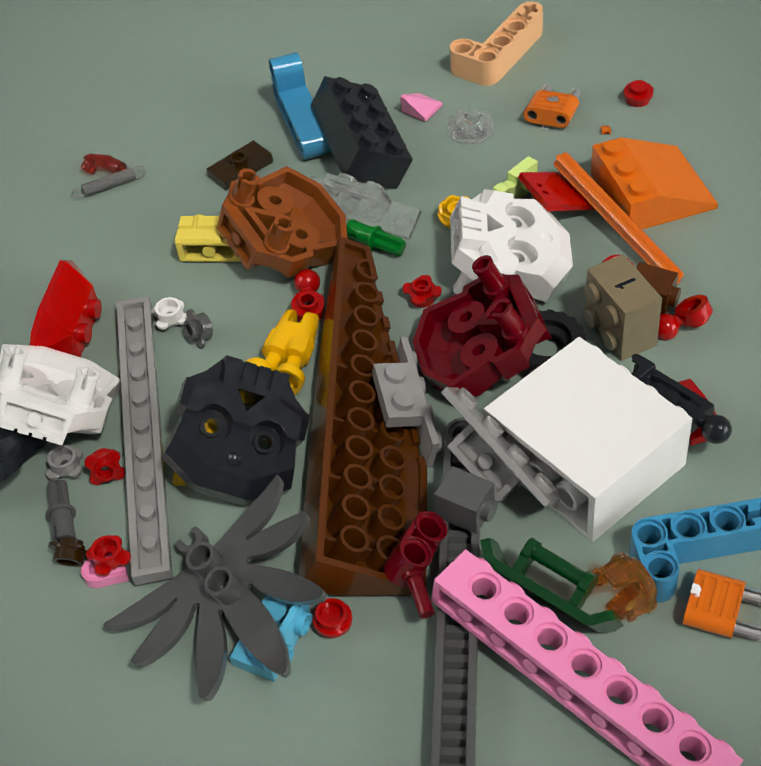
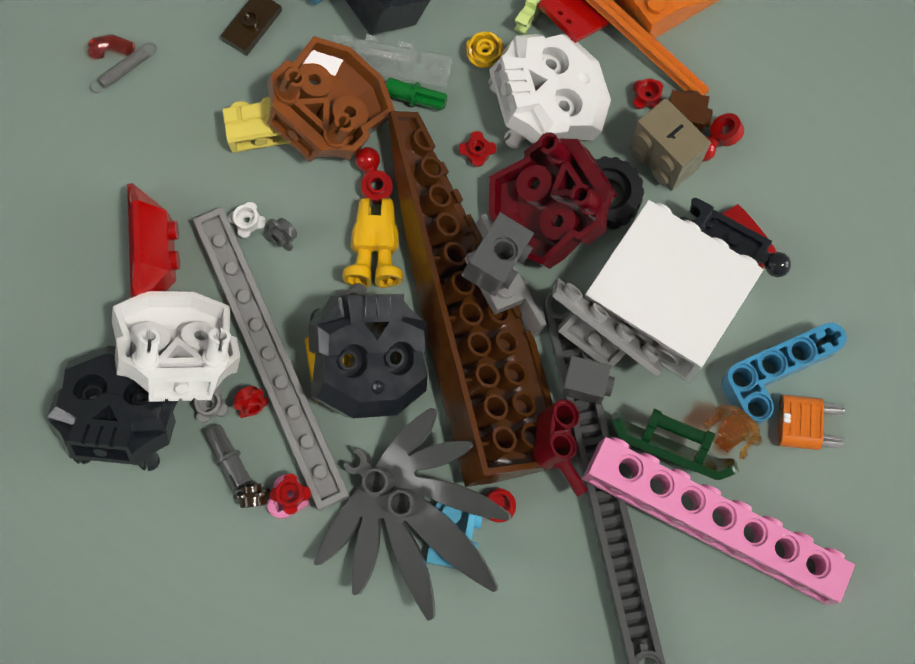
camera: 20 degrees left, 25 degrees up
(402, 361) = (504, 238): none -> dark grey brick

